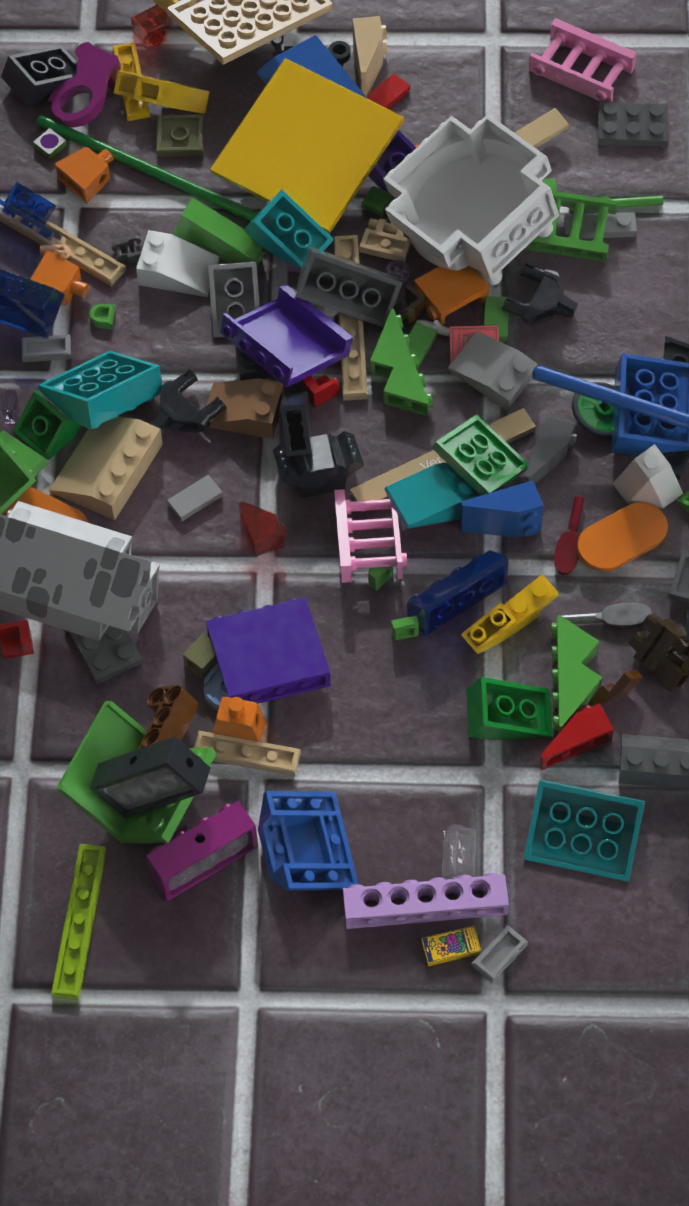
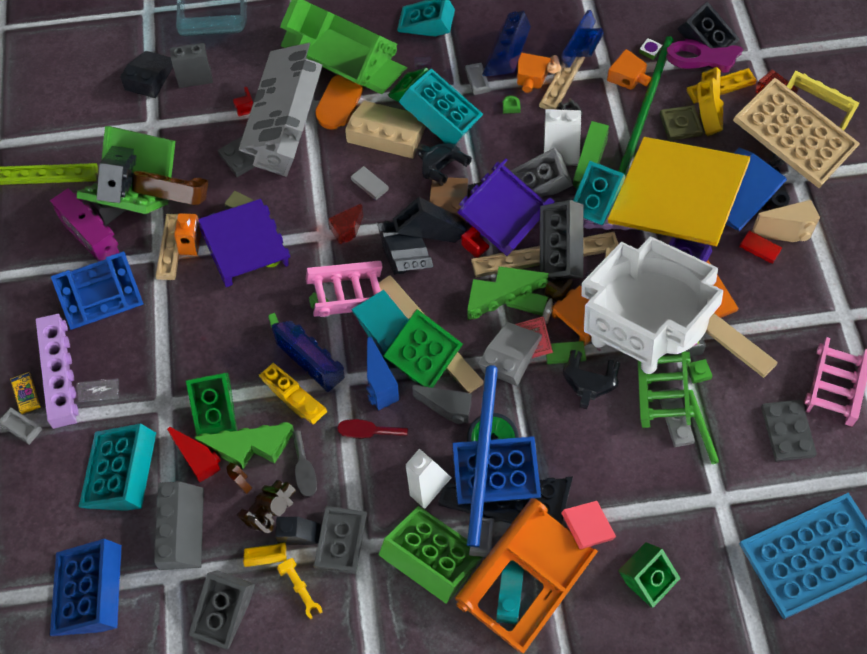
camera: 80 degrees right, 0 degrees up
(622, 537) = (374, 466): orange tile -> none

